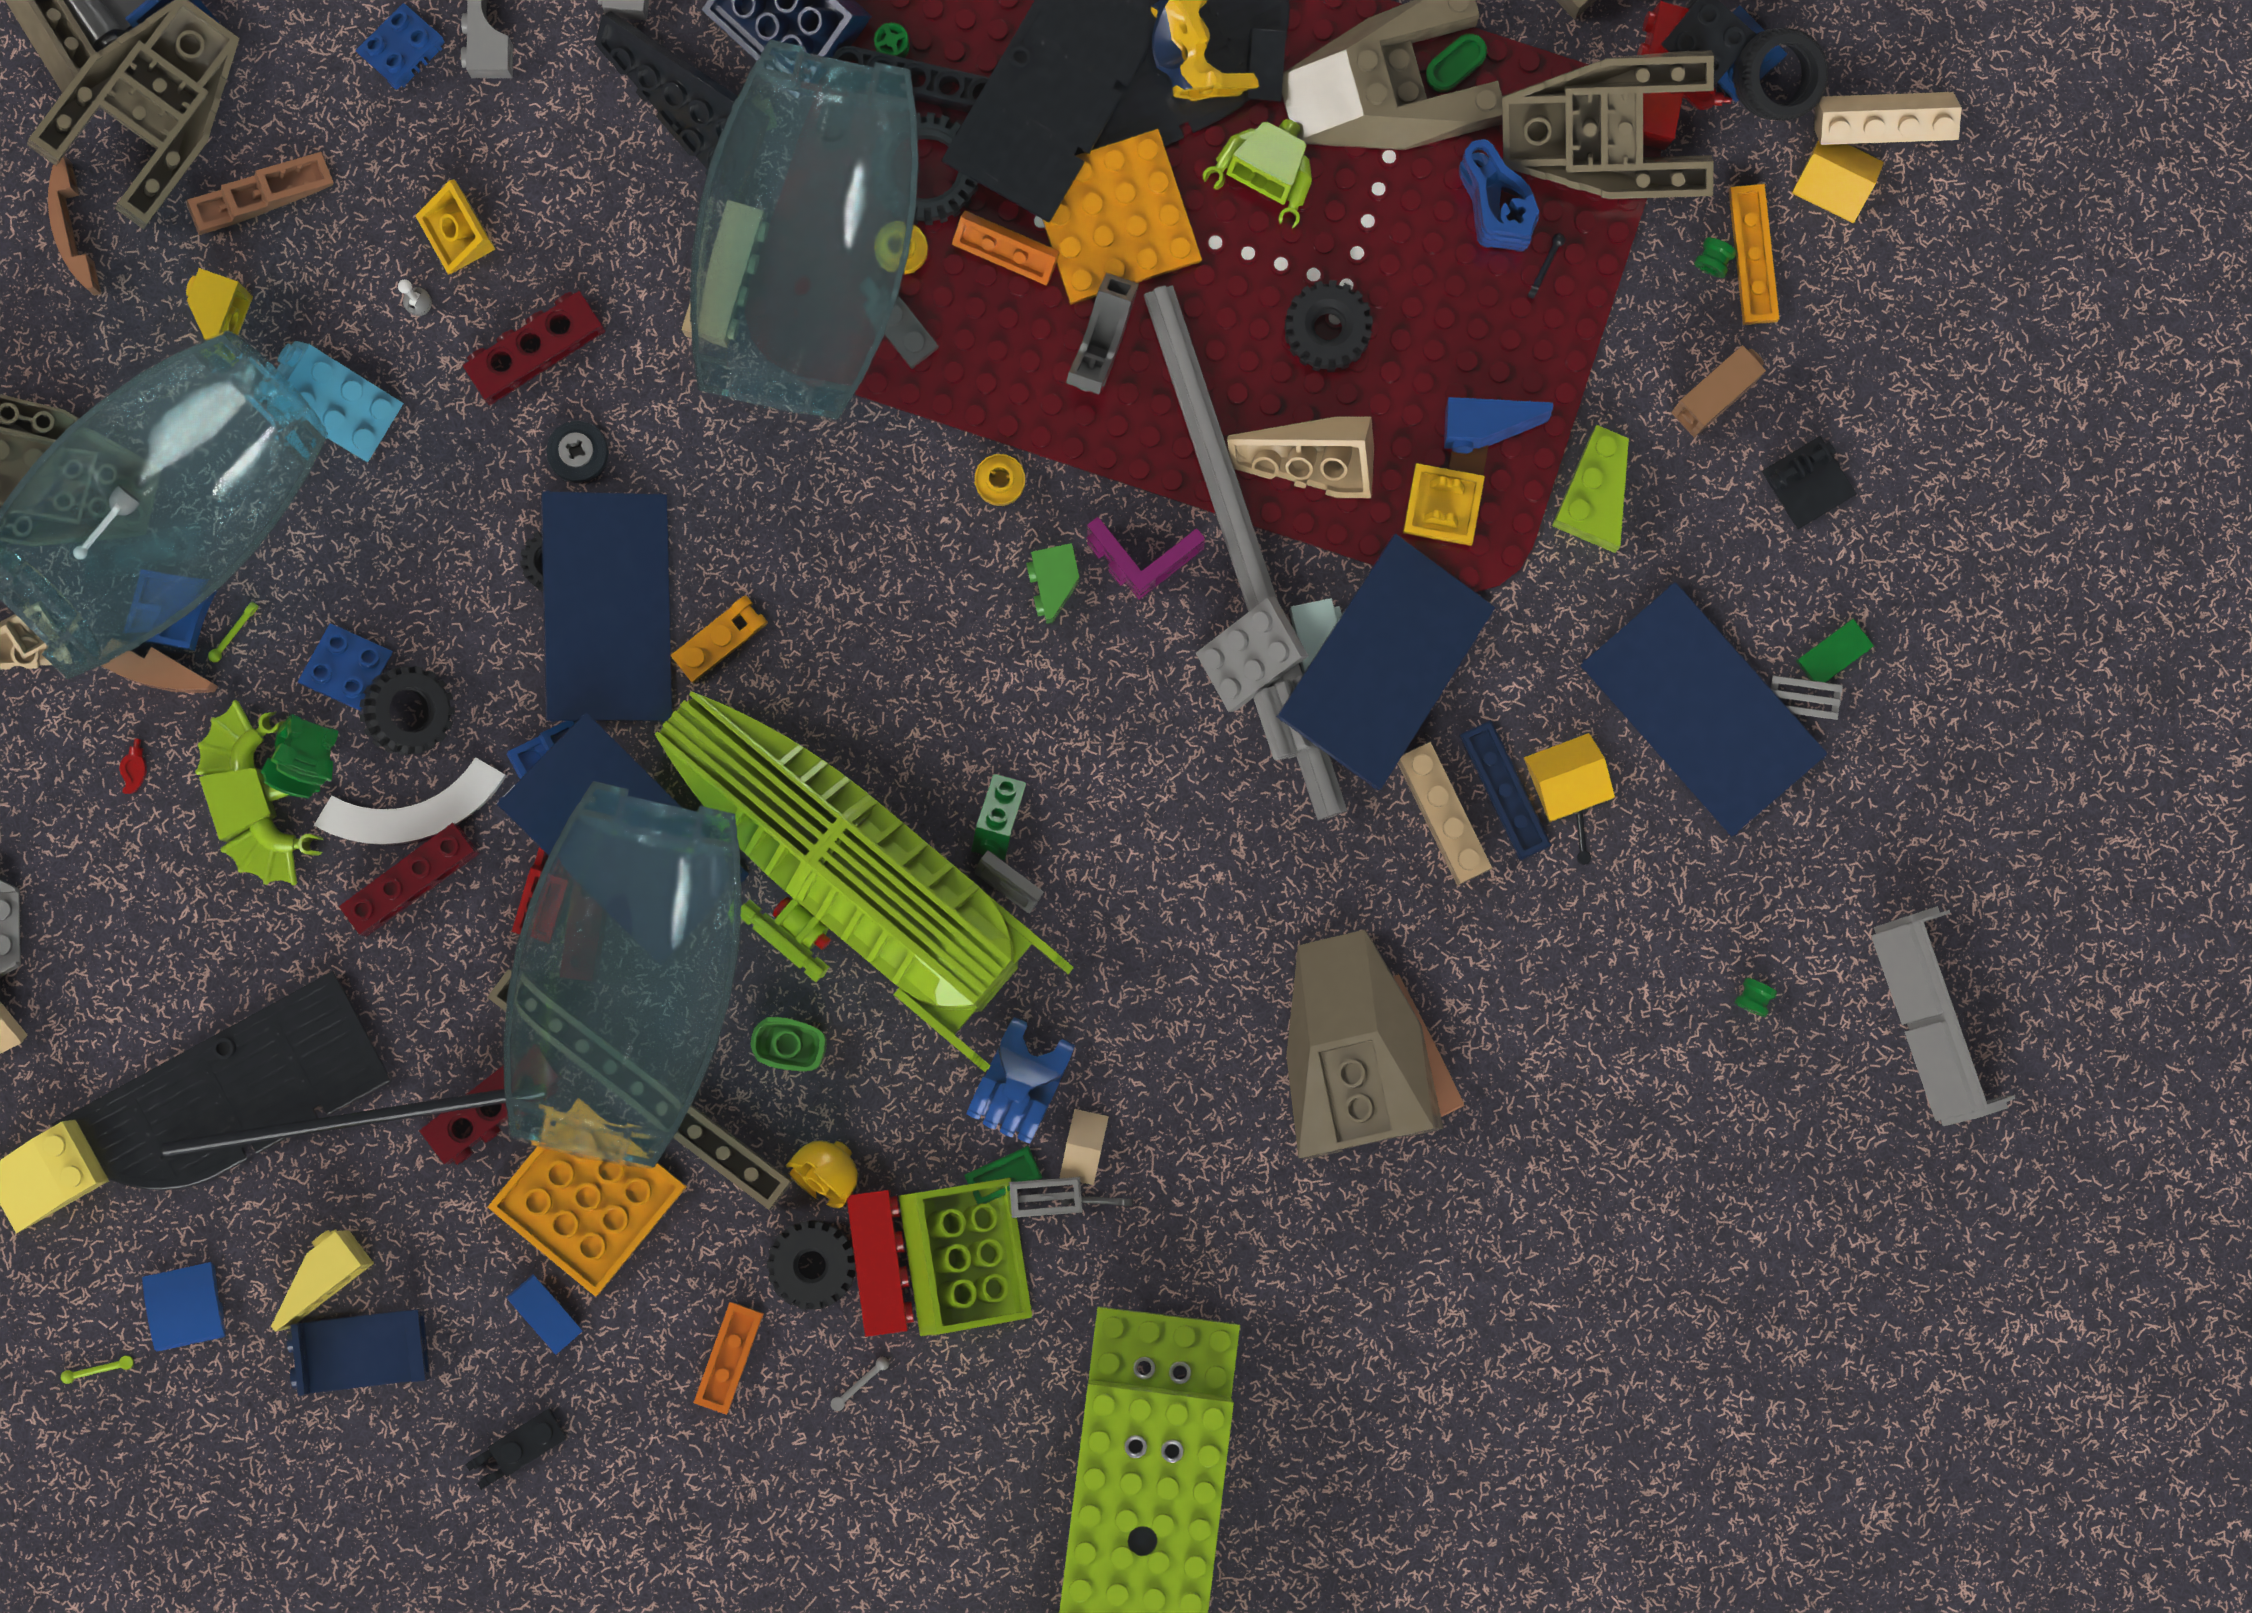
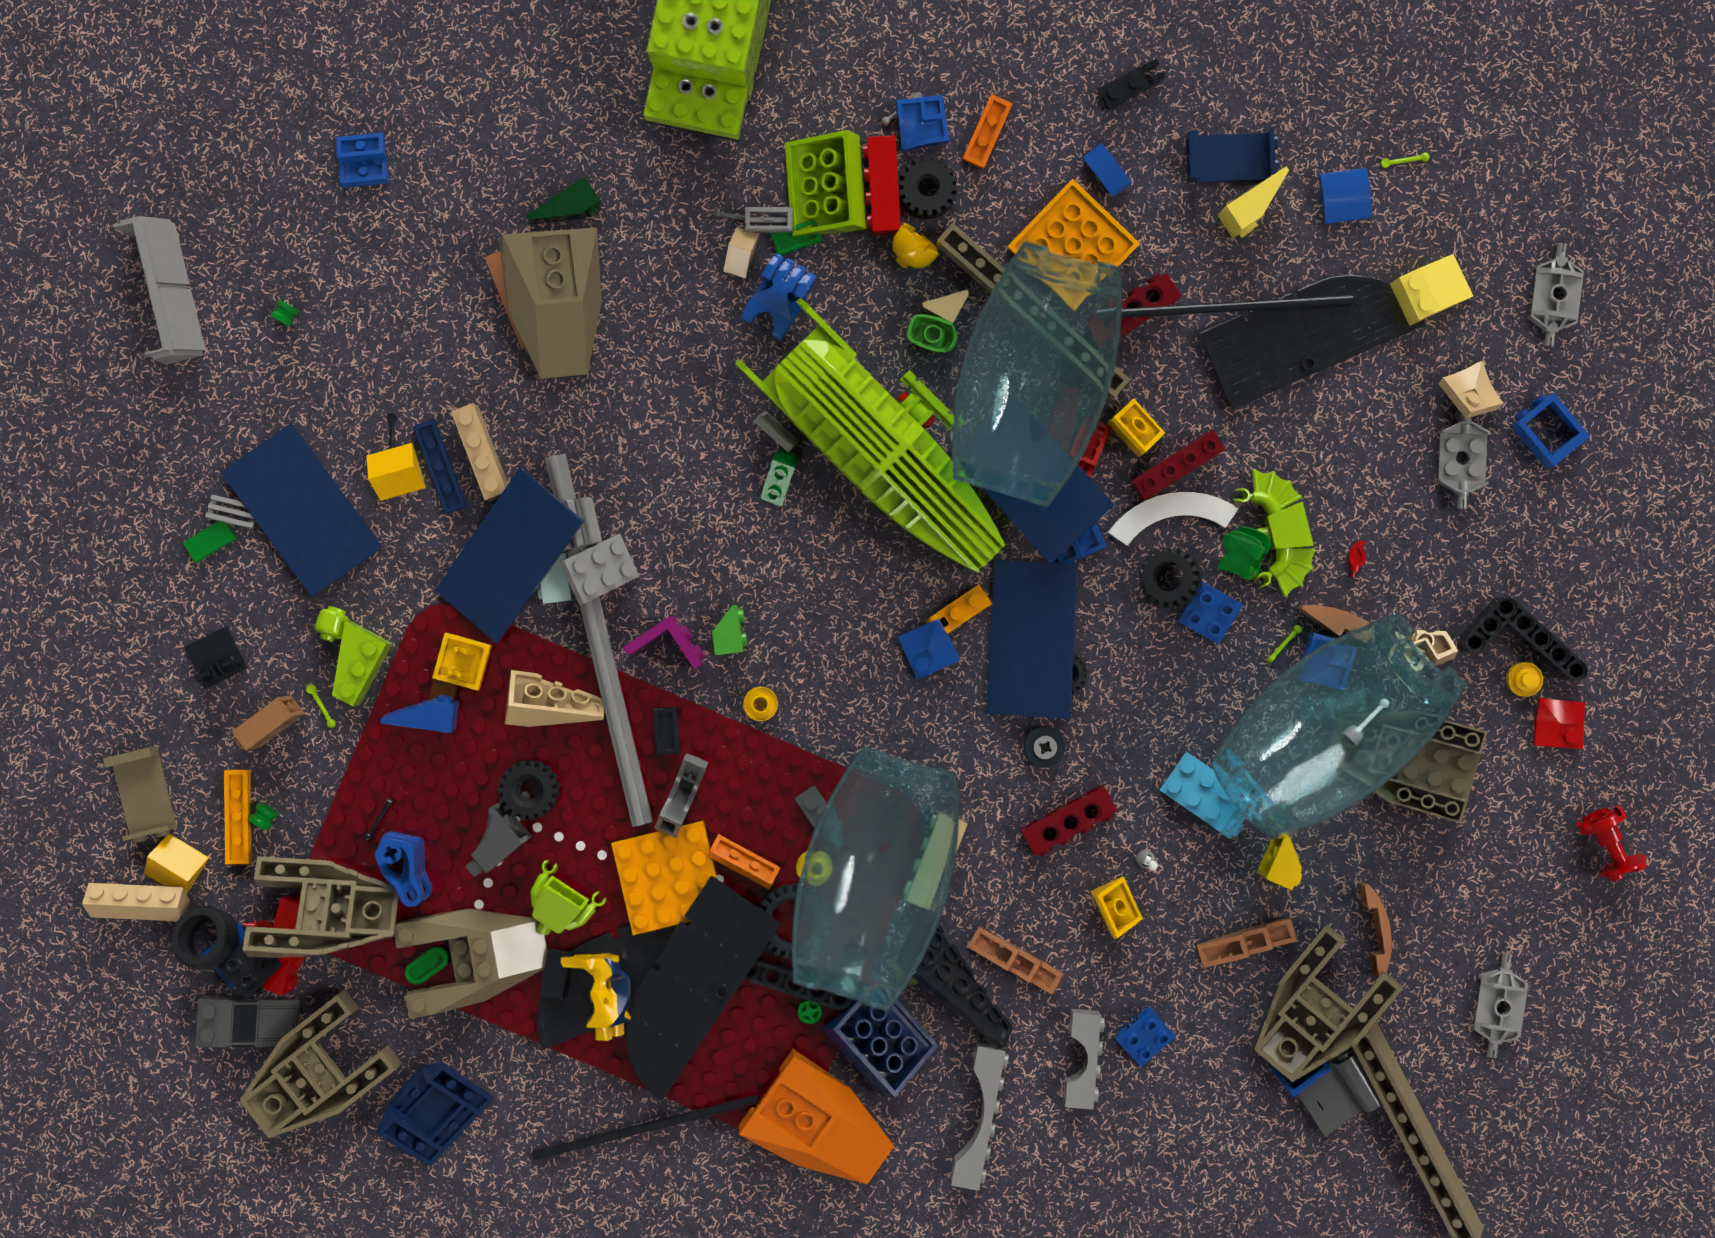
camera: 170 degrees left, 5 degrees up
(473, 932) = (1136, 428): none -> yellow slope
(597, 140) = (1016, 960): none -> nougat slope
(758, 580) = (928, 648): none -> blue plate
(767, 1087) = (947, 306): none -> tan slope
(828, 1363) = (921, 122): none -> blue plate
(1135, 428) = (666, 731): none -> black tile
(1340, 1197) = (572, 203): none -> dark green slope
(1358, 247) = (501, 839): none -> dark grey hips
(1642, 544) = (331, 623): none -> lime head
(1662, 1238) = (362, 160): none -> blue slope
(1664, 448) = (311, 689): none -> lime hinge
(1896, 275) = (143, 793): none -> dark tan panel

